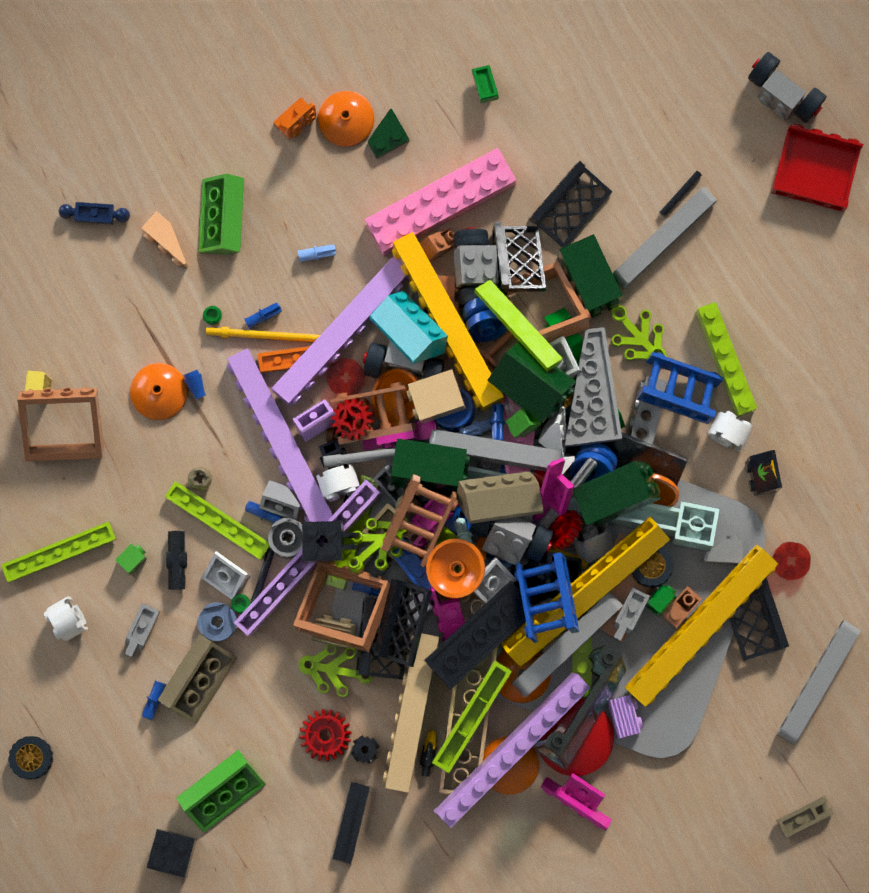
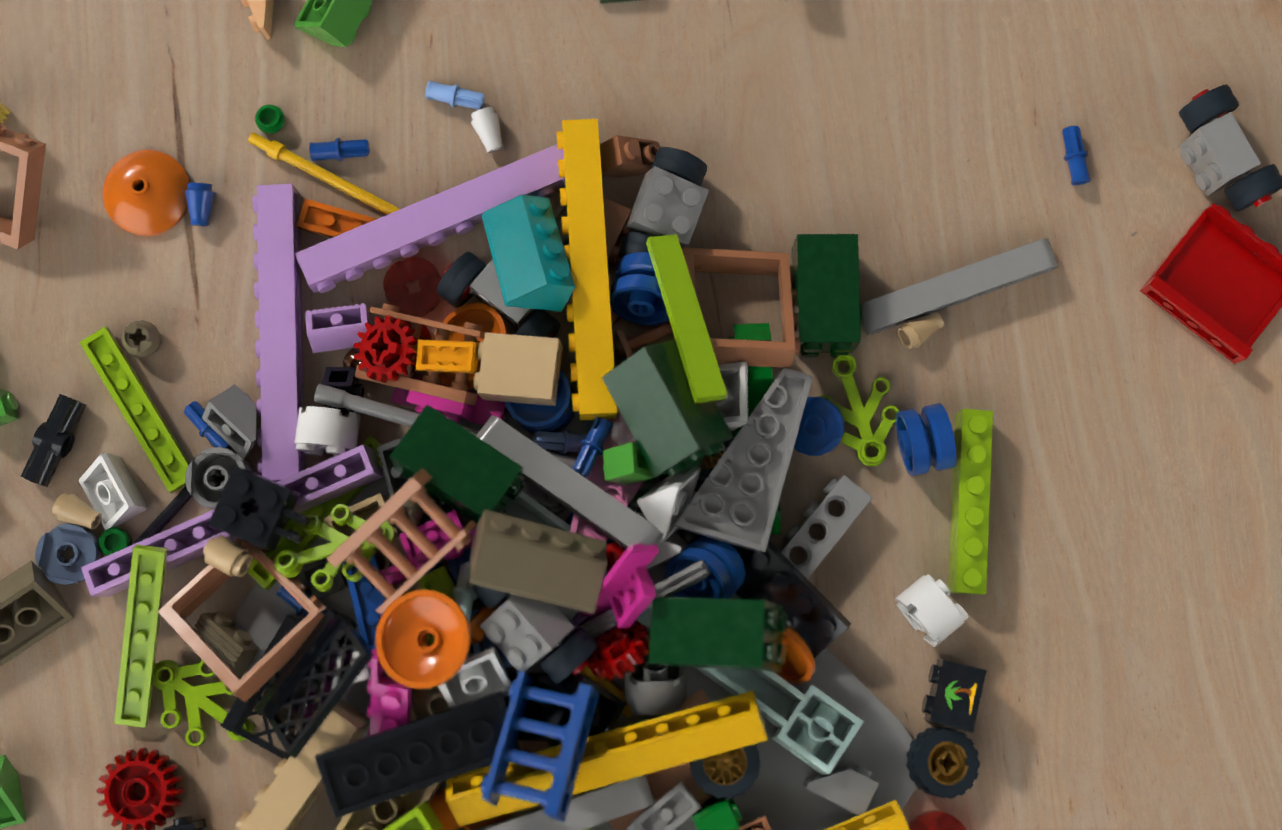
camera: 25 degrees right, 0 degrees up
(210, 595) = (75, 511): none -> tan cone
(287, 646) = (140, 635): none -> lime plate
(318, 576) = (227, 556): none -> tan brick
(346, 264) = (488, 128): none -> white cone
(390, 407) = (447, 356): none -> light orange plate
(441, 200) = (665, 96): bright pink brick -> none
(500, 240) = (708, 221): fence -> none
(556, 196) = (833, 158): black fence -> none
(621, 355) = (820, 427): none -> blue tile
(652, 274) = (918, 330): none -> tan cone
(668, 400) = (859, 523): blue fence -> none
(682, 191) = (1008, 235): black bar -> none
(684, 335) = (926, 439): none -> blue wheel
(699, 129) = (1075, 155): none -> blue axle
(774, 514) = (943, 762): none -> black wheel

